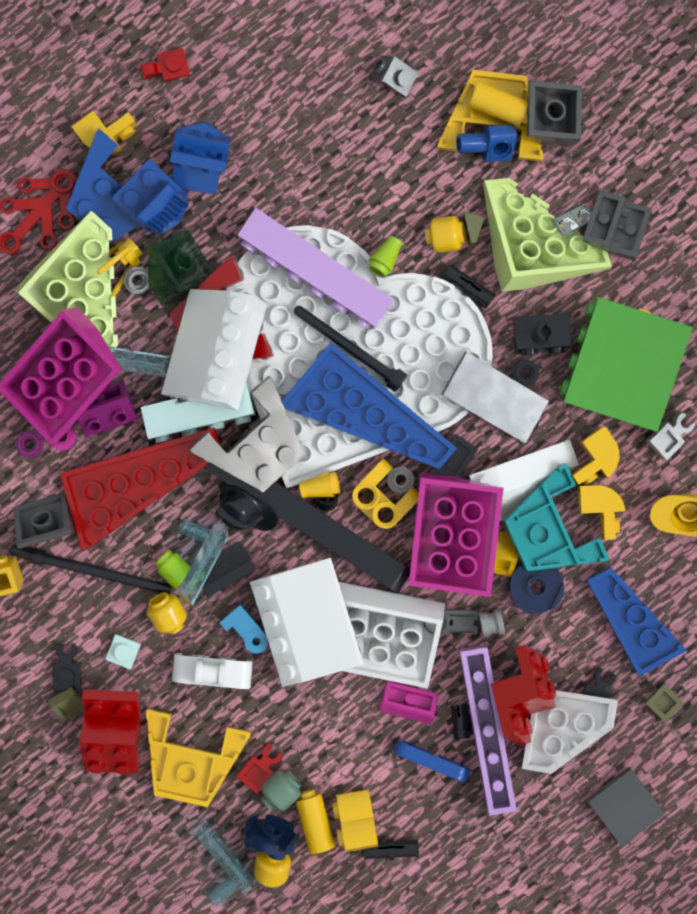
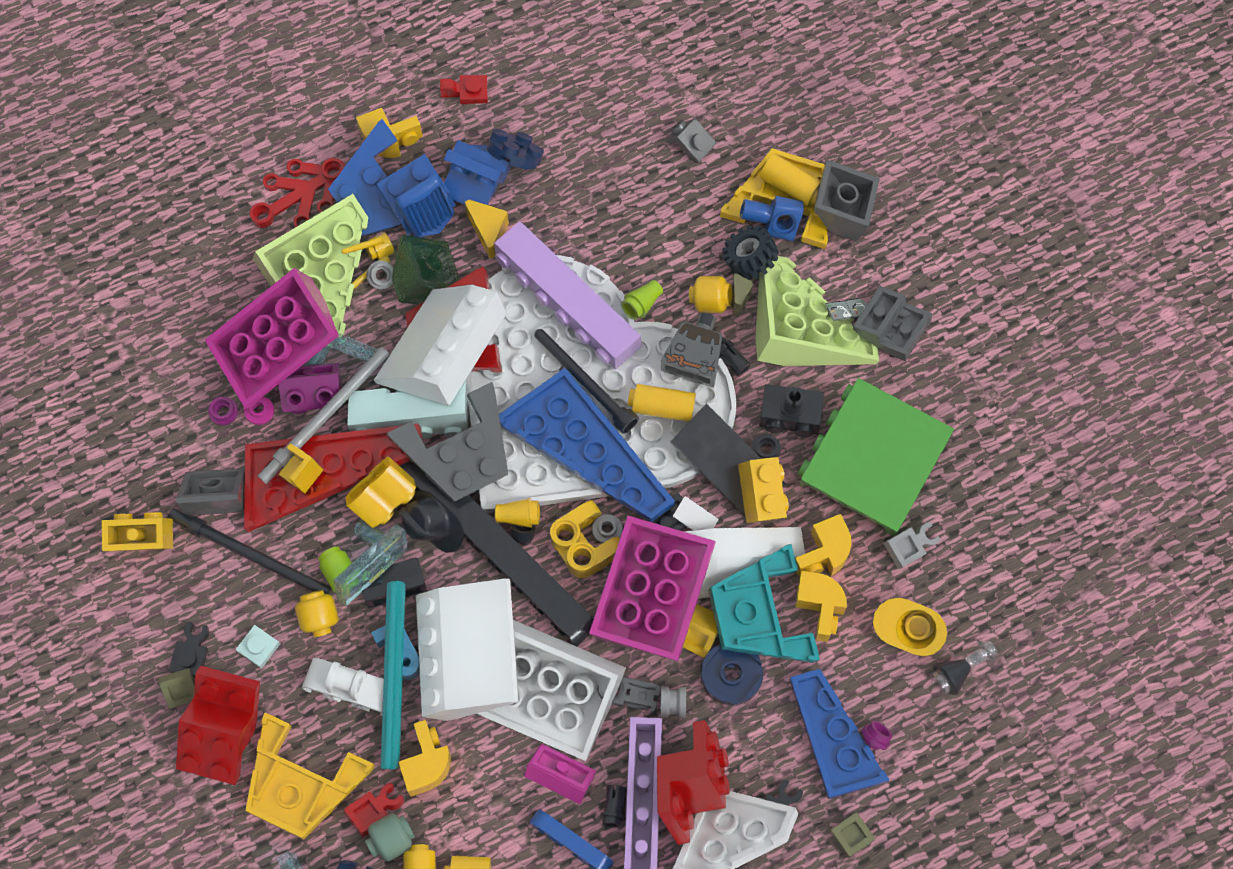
camera: 10 degrees right, 20 degrees down
(99, 482) = (283, 456): none -> light grey bar
(118, 493) = (300, 470): none -> yellow panel
(195, 497) = (381, 493): none -> yellow brick
(224, 208) = (488, 224): none -> yellow slope
(231, 126) = (516, 148): none -> dark blue plate
(248, 656) = (393, 675): none -> teal axle
(297, 727) = (429, 768): none -> yellow brick
(425, 356) = (662, 402): none -> yellow brick
(445, 299) = (694, 351): none -> dark grey torso
(476, 454) = (694, 515): none -> white sticker
(486, 178) = (752, 239): none -> black bush
(532, 418) = (763, 490): none -> yellow brick
(669, 614) = (877, 735): none -> magenta plate

